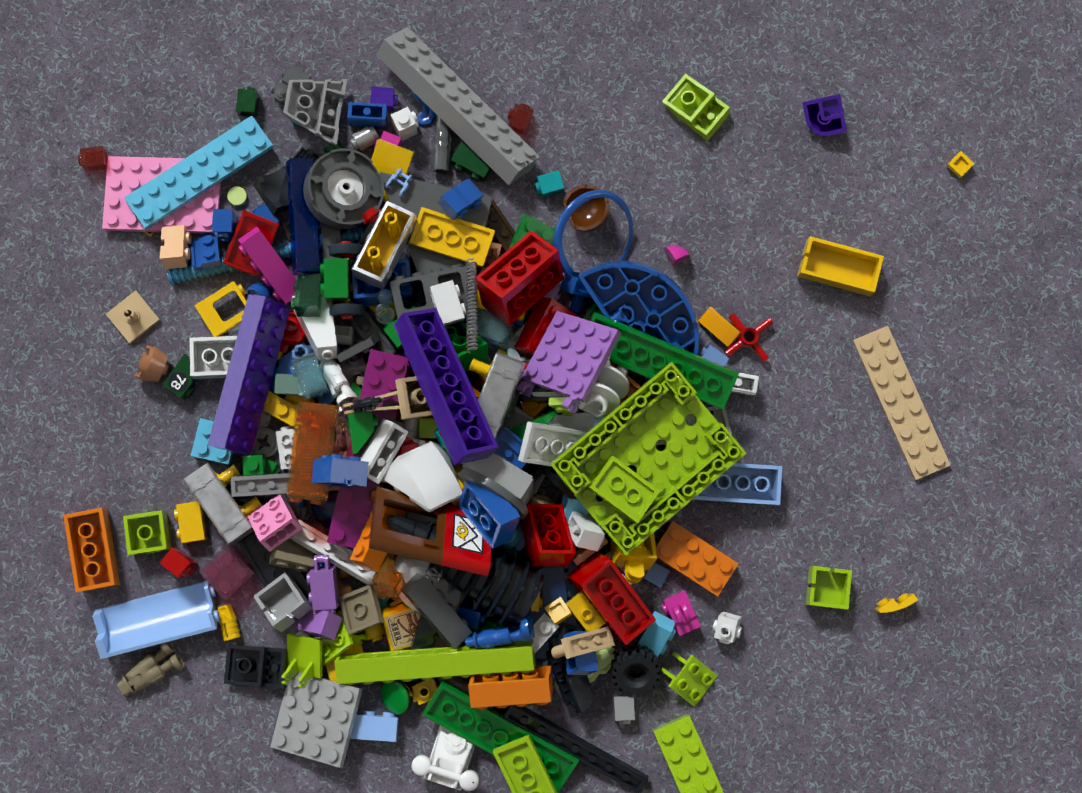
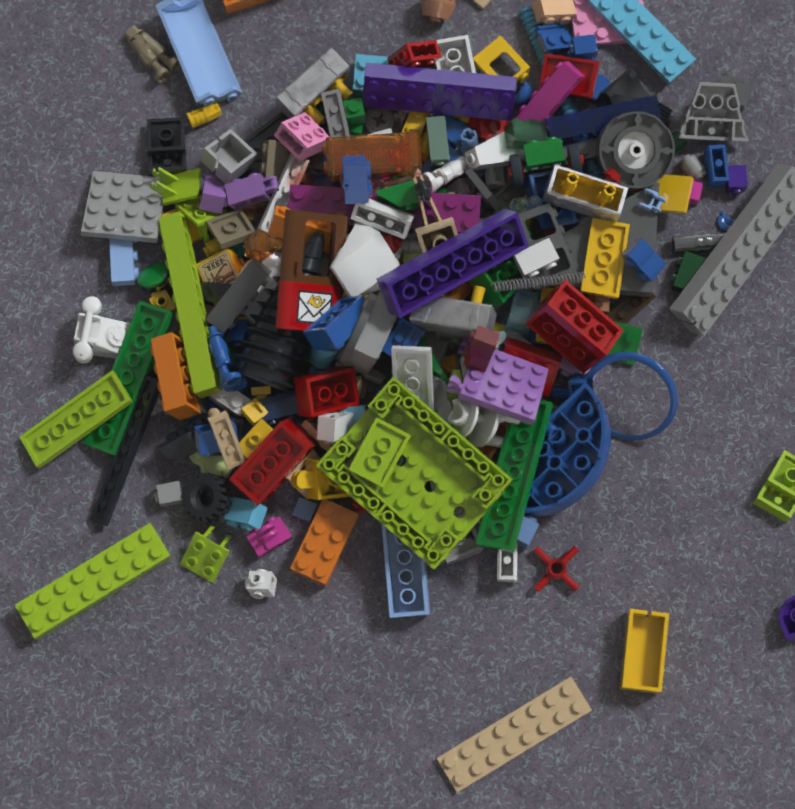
camera: 85 degrees right, 5 degrees down
(147, 532) = (278, 28): lime brick -> none
(179, 563) = (253, 60): red brick -> none
(180, 380) = (425, 32): dark green slope -> none
(191, 522) = (292, 65): yellow brick -> none
(206, 393) = (416, 54): none -> red brick
(228, 572) = (250, 106): clear pink brick -> none
(237, 196) = (614, 59): yellowish green tile -> none
(247, 102) = (708, 53): dark green brick -> none
(309, 376) = (446, 145): clear light blue brick -> none
(405, 123) = (713, 201): white brick -> none
(520, 118) = (740, 313): clear red brick -> none
(537, 371) = (481, 348): none -> dark red brick
(549, 184) = (678, 351): teal brick -> none
(591, 213) = (654, 392): reddish brown cylinder -> none
(676, 254) = (629, 485): dark pink brick -> none
(719, 326) = (561, 538): light orange slope -> none
(828, 587) = (313, 680): lime piece -> none
(890, 605) = (304, 745): yellow slope -> none
(960, 164) = (775, 766): yellow plate -> none

